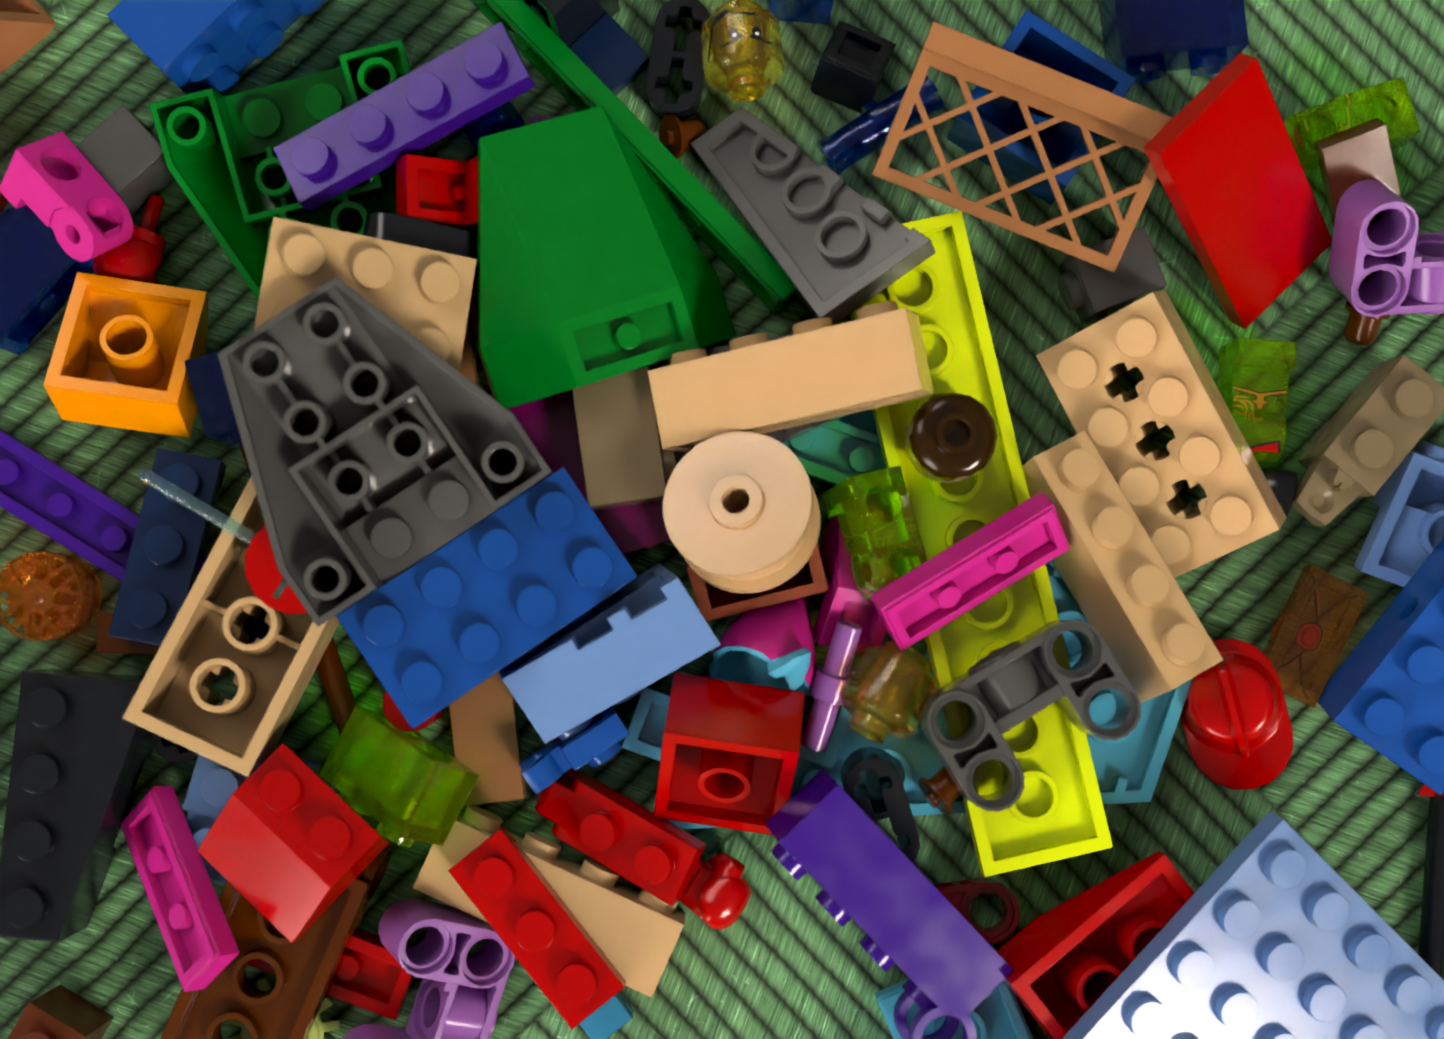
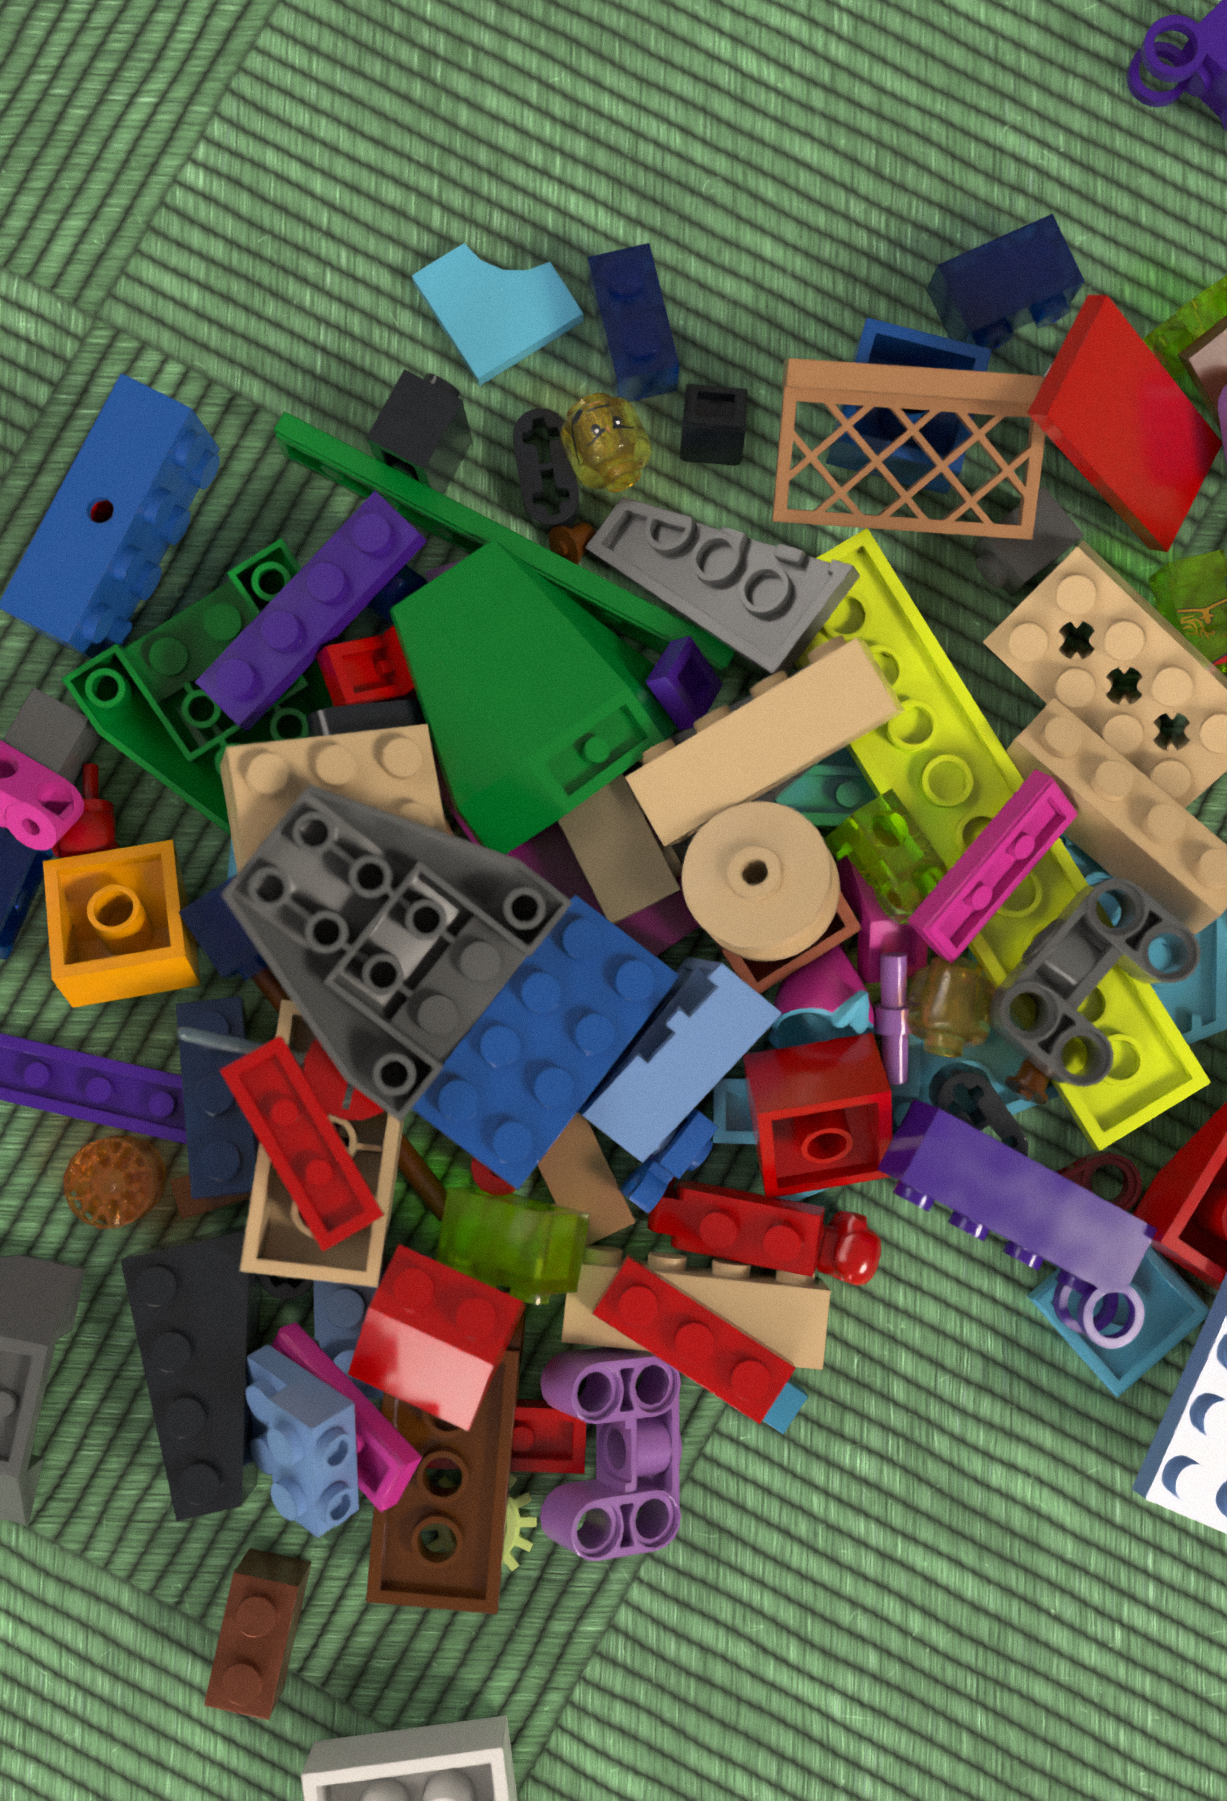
camera: 20 degrees left, 0 degrees up
(134, 901) = (303, 1440): none -> medium blue plate
(220, 616) = (302, 1143): none -> red plate
(611, 54) = (480, 485): dark blue tile -> none
(737, 300) = (684, 682): none -> dark purple plate
(872, 127) = (752, 477): clear blue pin -> none
(950, 438) = (933, 746): dark brown head -> none

